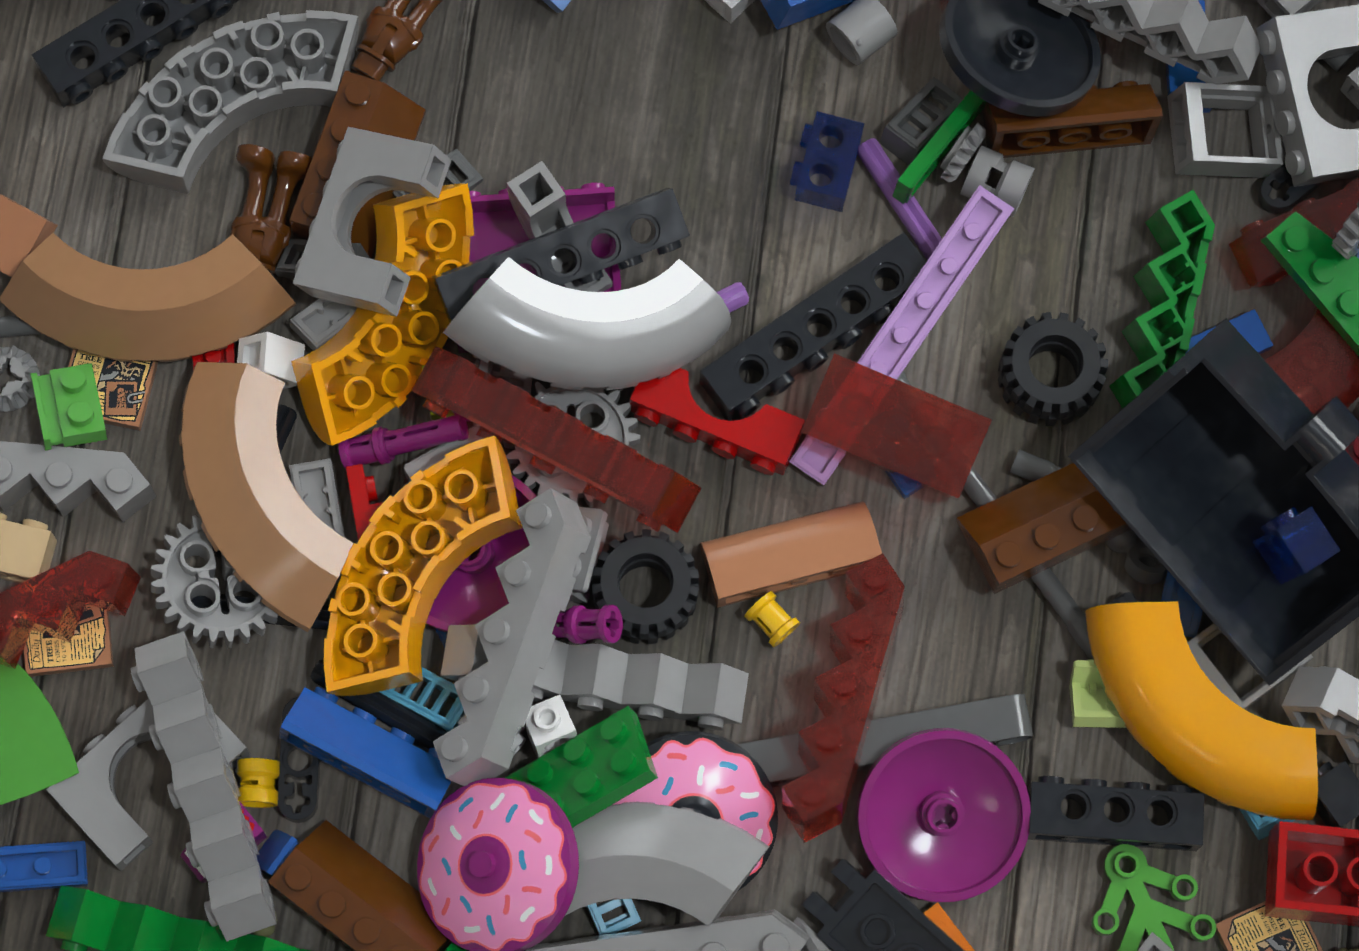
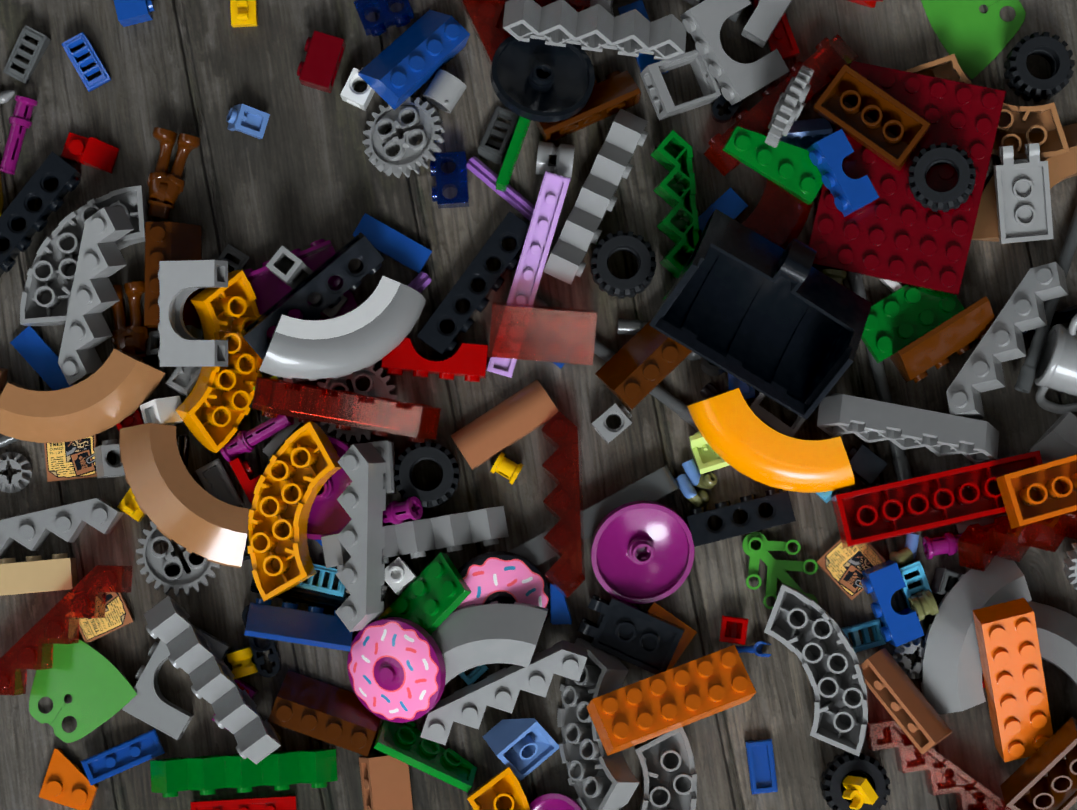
camera: 15 degrees left, 10 degrees up
(69, 406) = (54, 480): bright green plate -> none
(115, 222) = (40, 358): none -> blue tile
(152, 417) = (103, 467): none -> light grey brick
(172, 490) = (130, 506): none -> yellow tile
(230, 142) = (92, 293): none -> light grey brick
(275, 851) = (266, 699): blue slope -> none
(712, 231) = (393, 243): none -> blue tile
(775, 67) = (403, 137): none -> light grey gear
(783, 865) = (558, 607): none -> blue slope
(946, 616) = (604, 431): none -> light grey brick
(962, 152) = (528, 149): light grey gear -> none
(1043, 256) = (596, 197): none -> light grey brick
(1048, 751) = (690, 493): none -> arm
(1073, 739) = (703, 481): none -> arm
(1295, 544) = (796, 331): clear blue brick -> none

